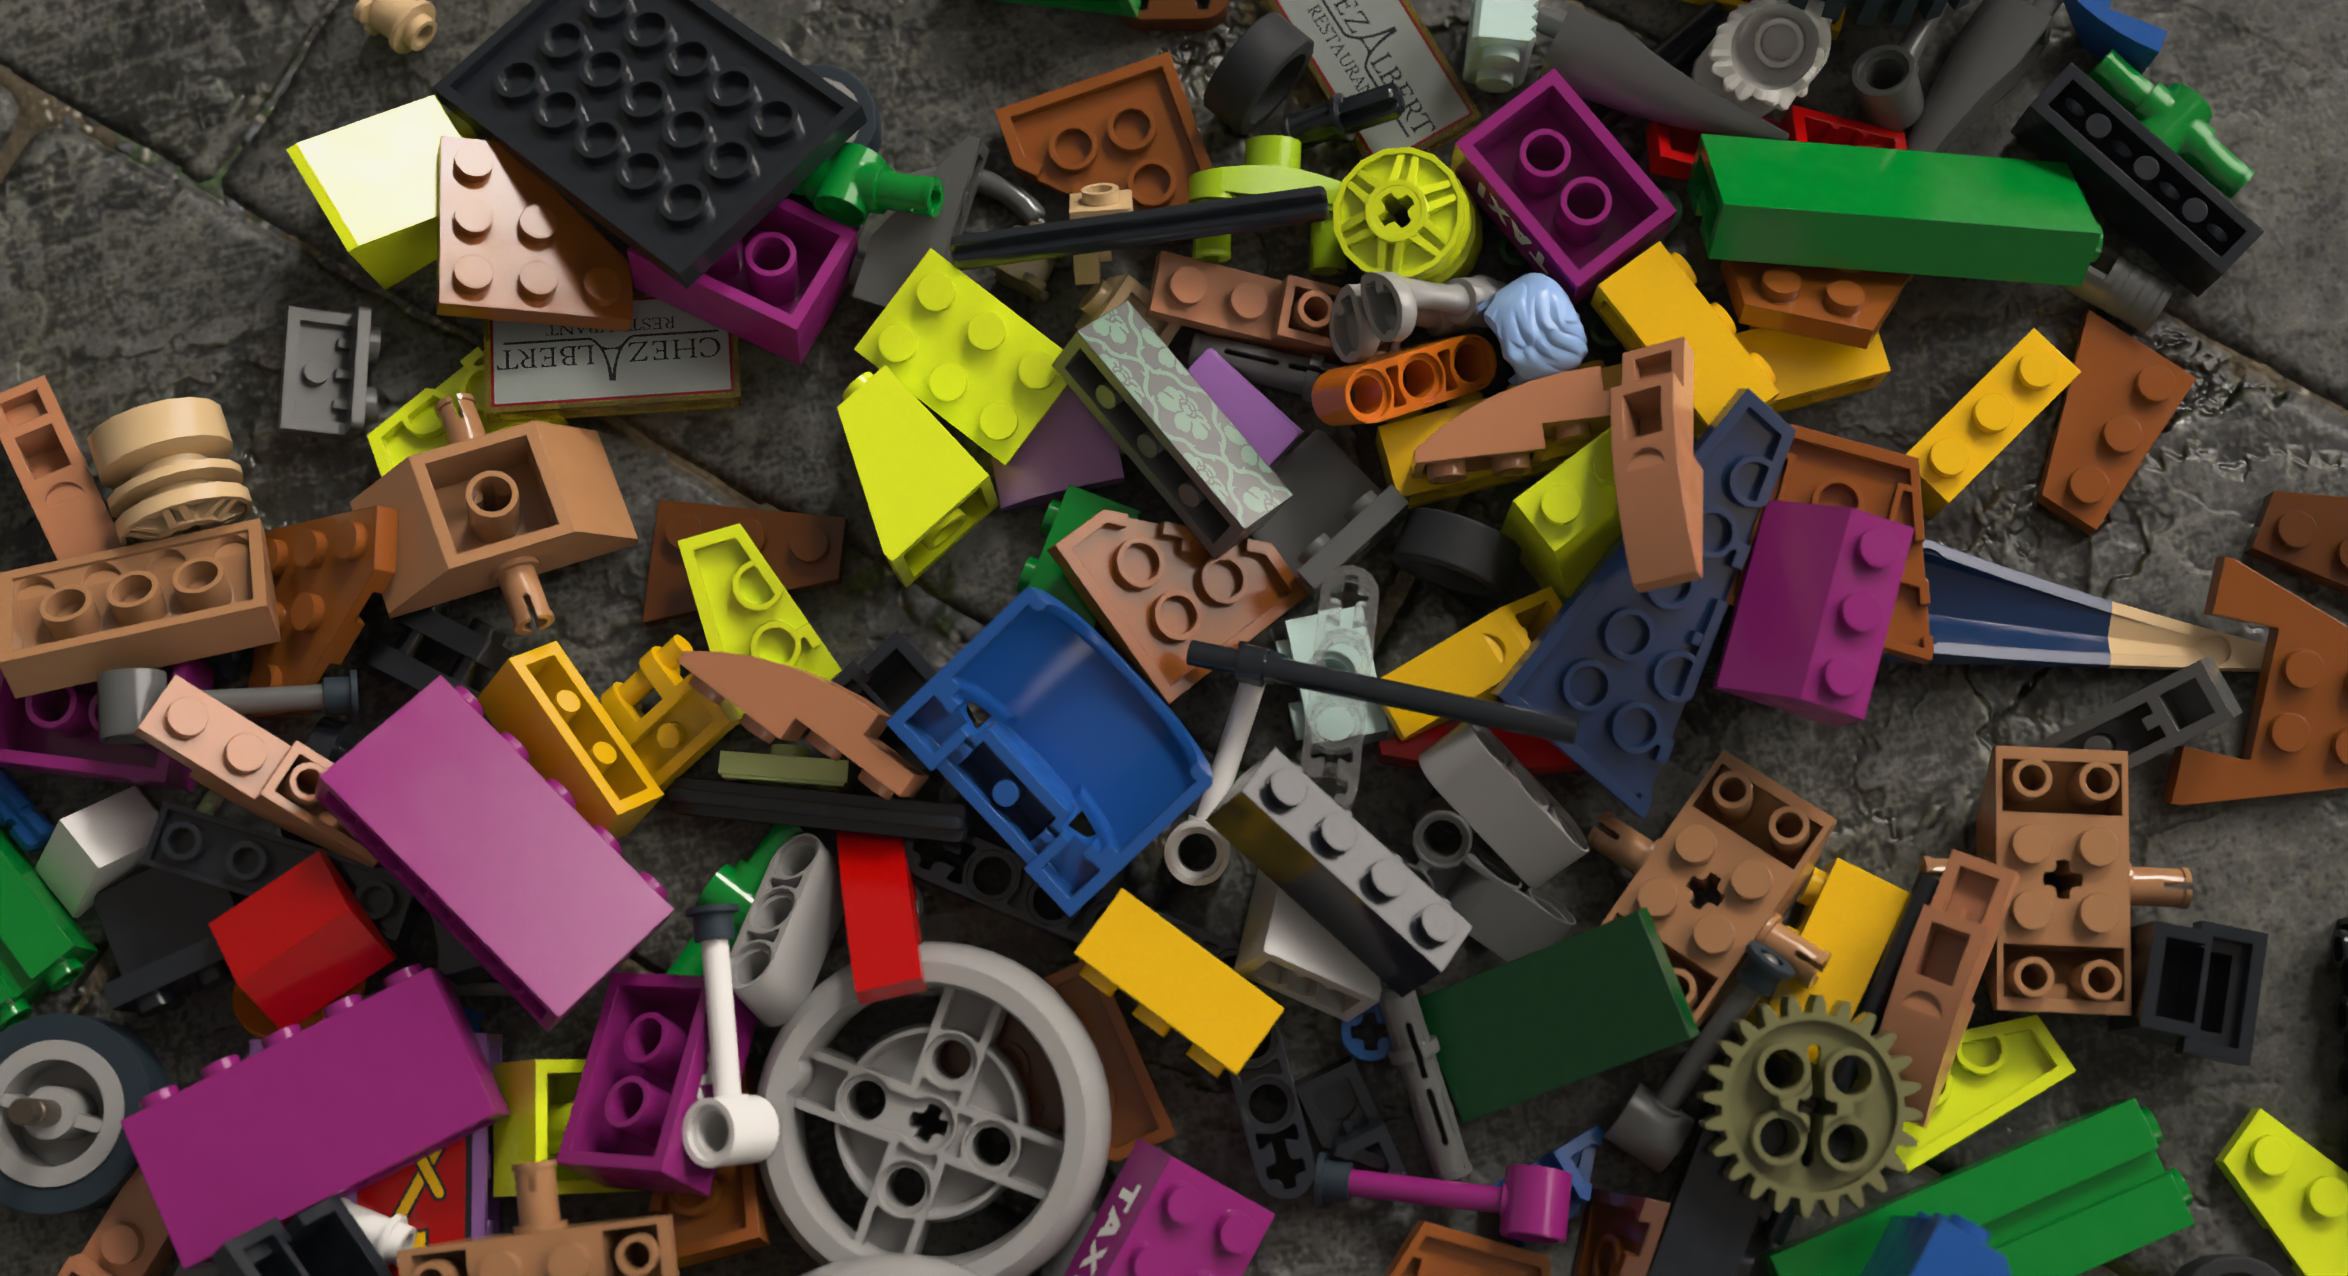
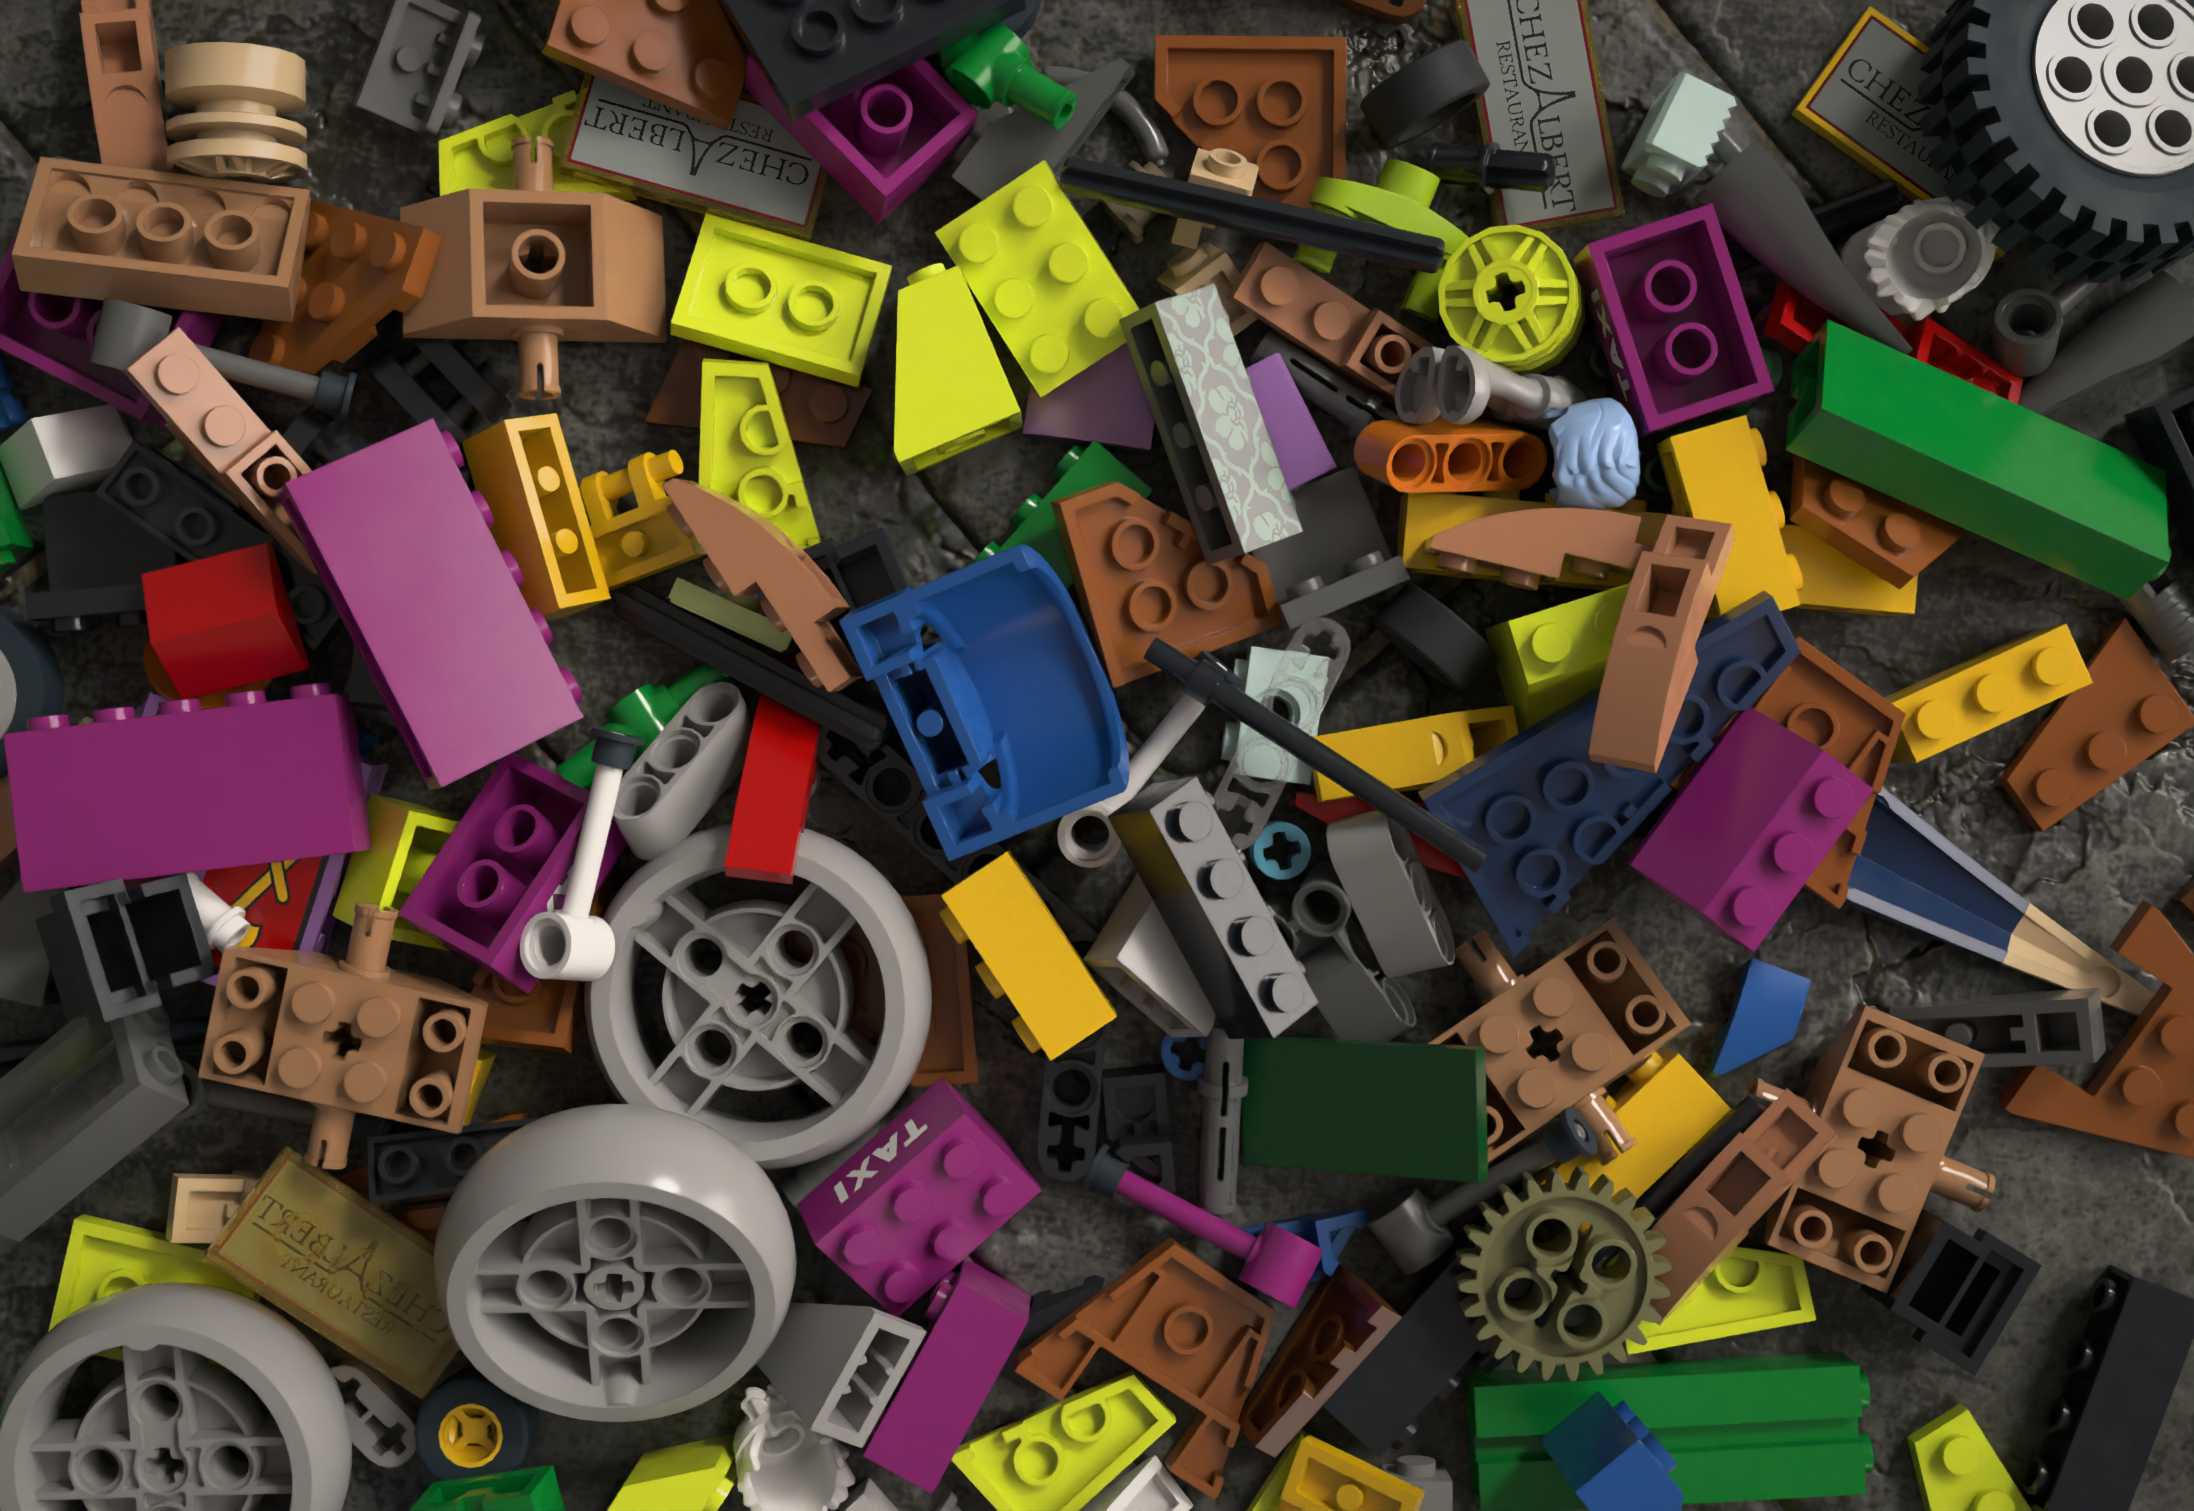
camera: 20 degrees right, 10 degrees up
(732, 464) = (781, 300): none -> neon yellow plate
(1387, 785) = (1296, 860): none -> medium azure bush
(1904, 801) = (1761, 1016): none -> blue slope

